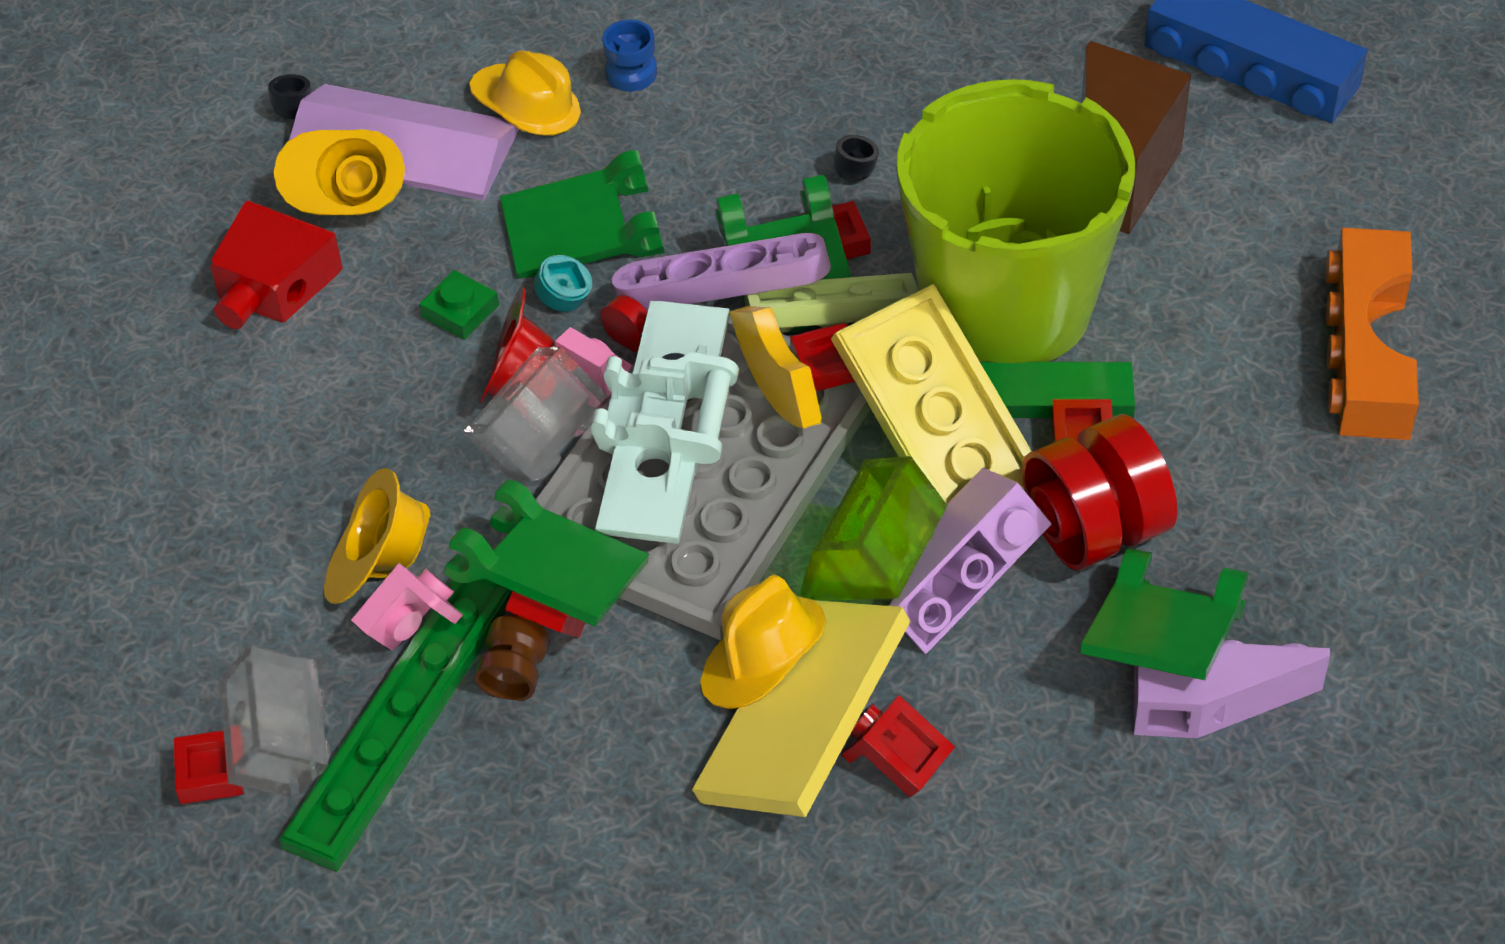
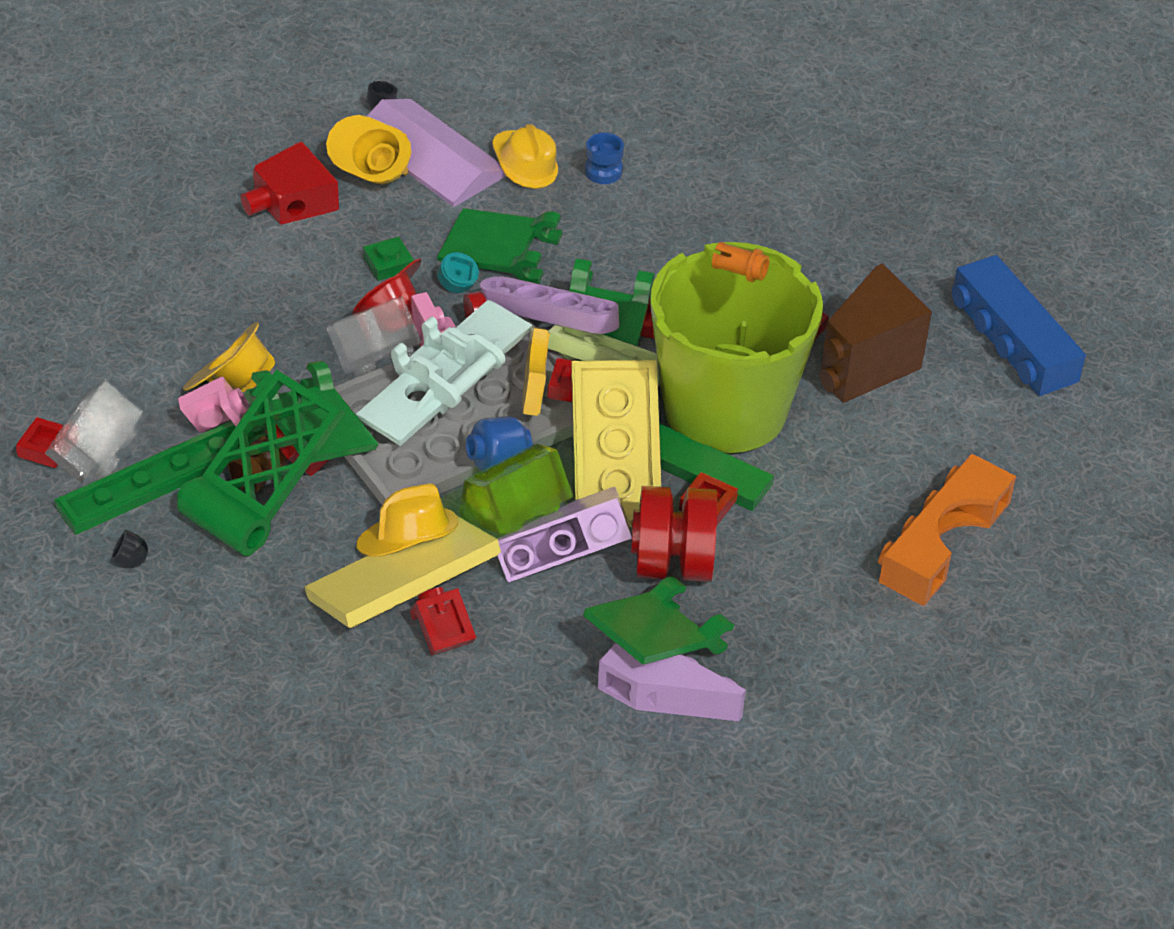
camera: 25 degrees right, 5 degrees down
(430, 857) = (130, 550): none -> black hinge
(518, 738) = (219, 503): none -> green piece
(809, 480) = (496, 440): none -> blue head
(993, 111) = (741, 261): none -> orange pin

